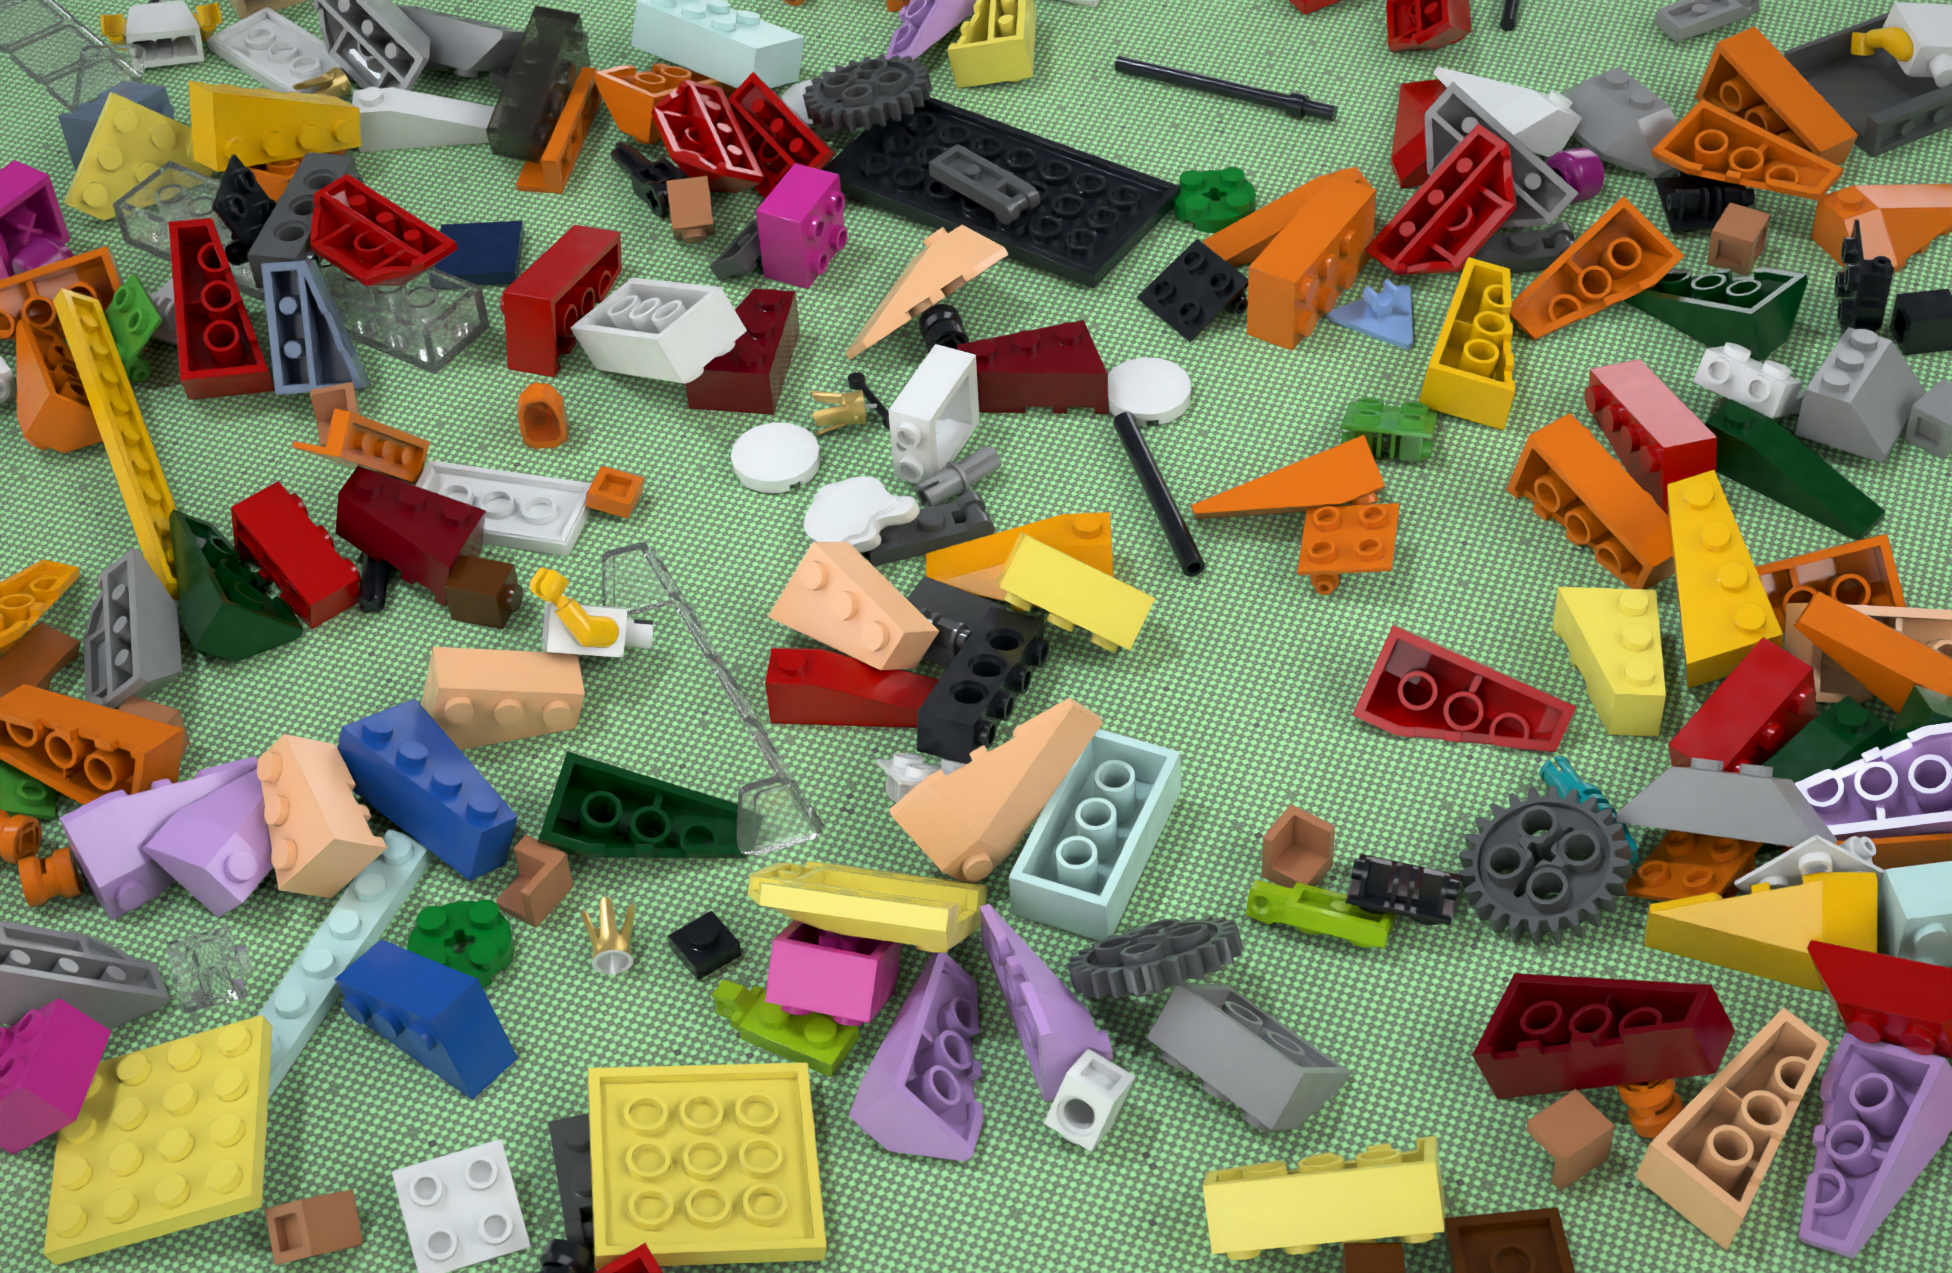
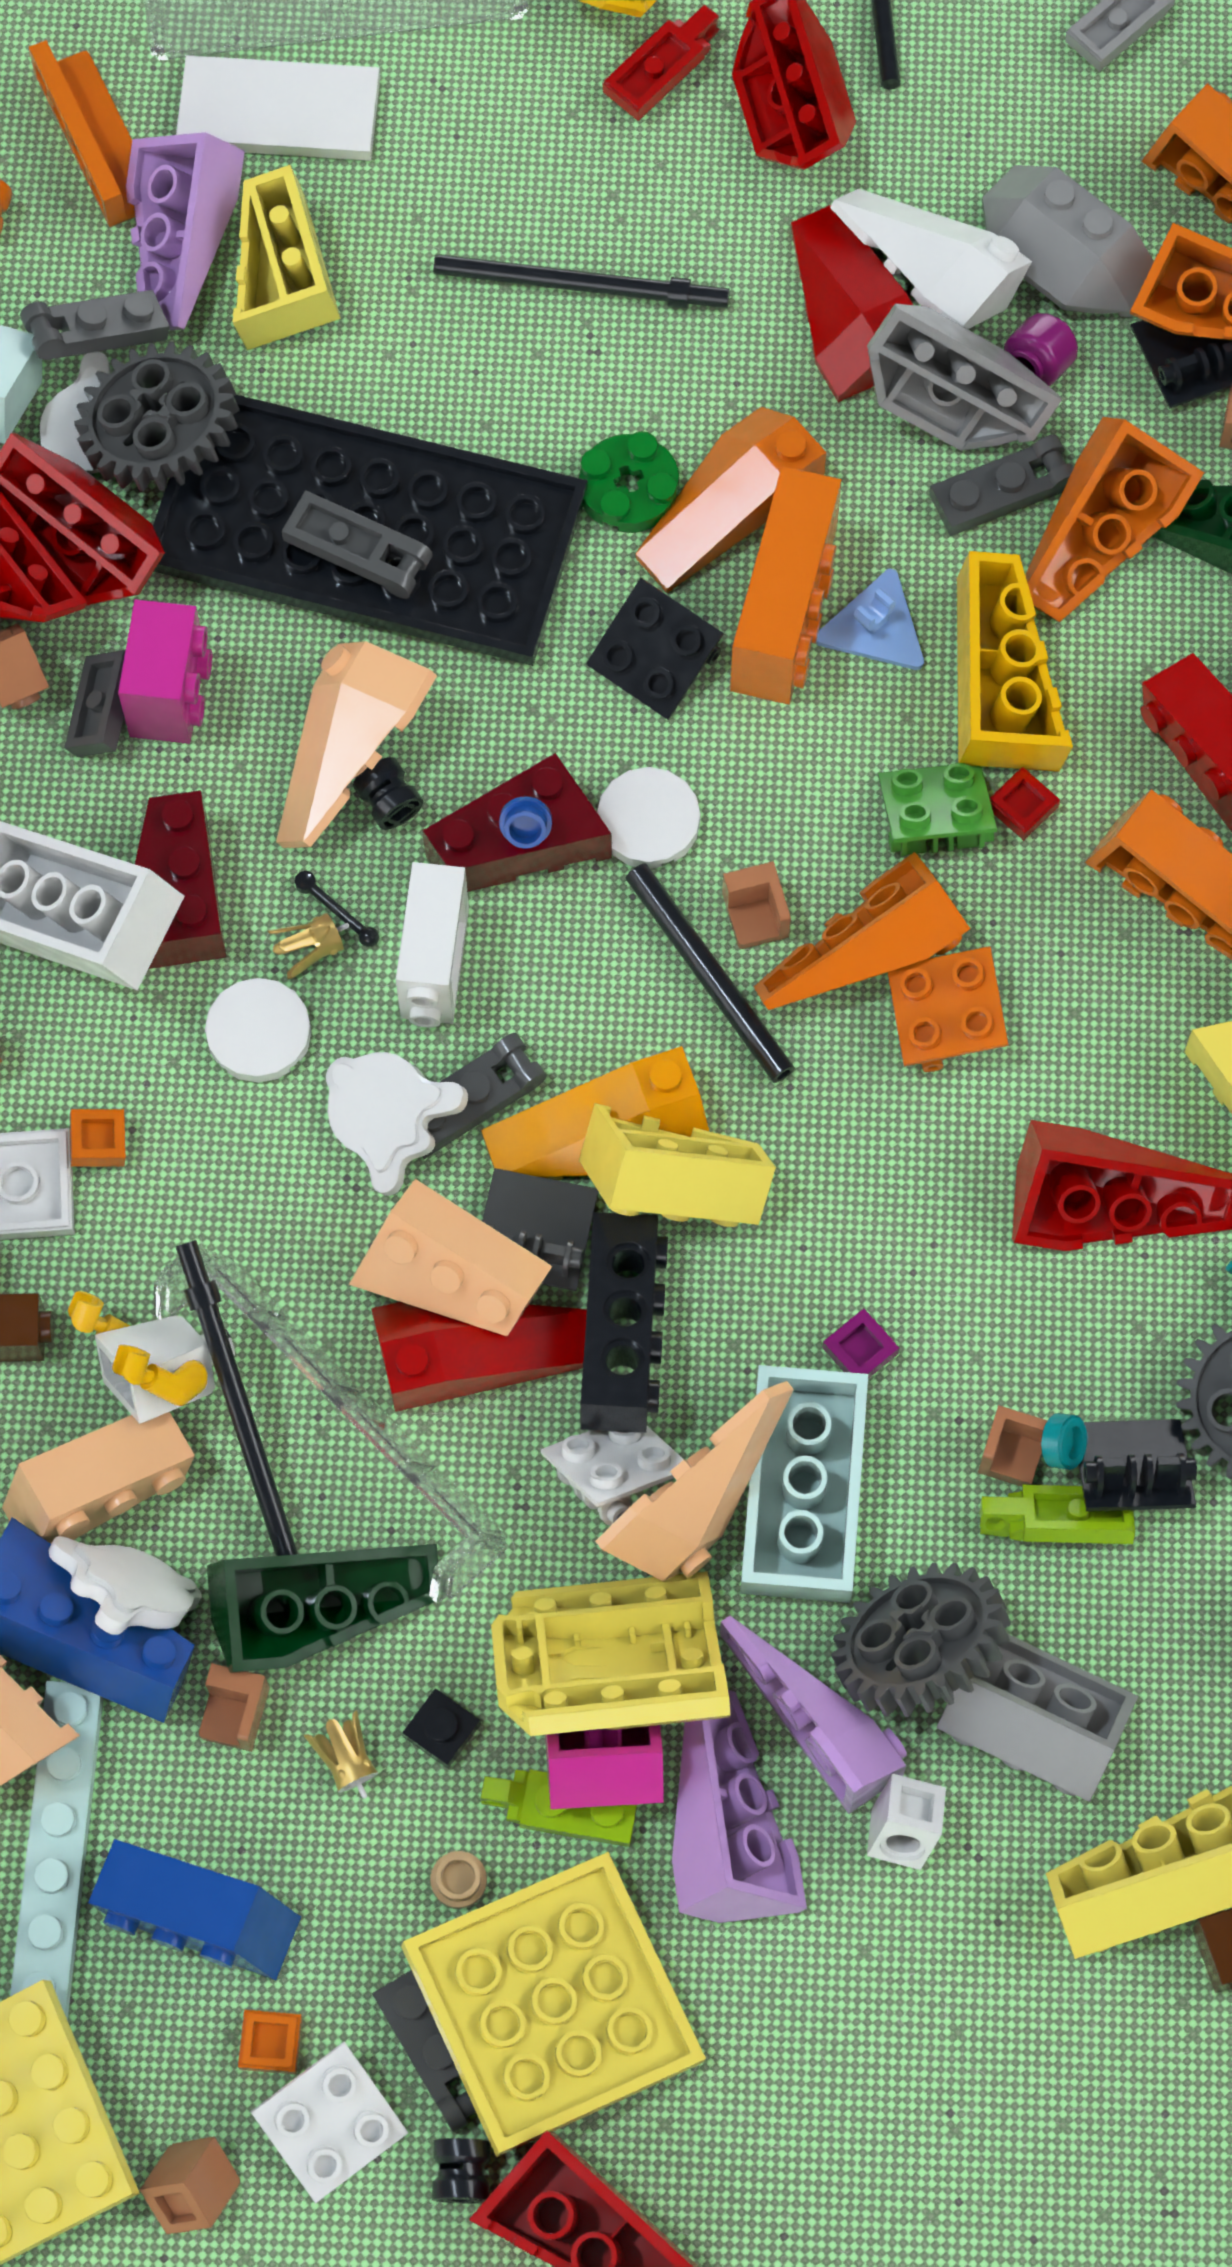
camera: 20 degrees left, 25 degrees up
(441, 1135) = (270, 2042): none -> orange tile
(465, 921) = (157, 1791): green plate -> none
(484, 763) = (127, 1585): none -> white tile
(636, 574) = (203, 1298): none -> black bar
(666, 1049) = (458, 1879): none -> tan plate
(844, 36) = (95, 324): none -> dark grey plate
(958, 477) = (481, 1011): light grey axle -> none
(1038, 342) = (525, 822): none -> blue plate
(1197, 754) = (860, 1345): none -> magenta plate
(1212, 453) = (756, 905): none -> nougat panel
(1341, 845) = (1064, 1441): none -> teal tile
(1451, 210) = (927, 472): red wedge -> none
(1464, 440) = (1023, 803): none -> red tile

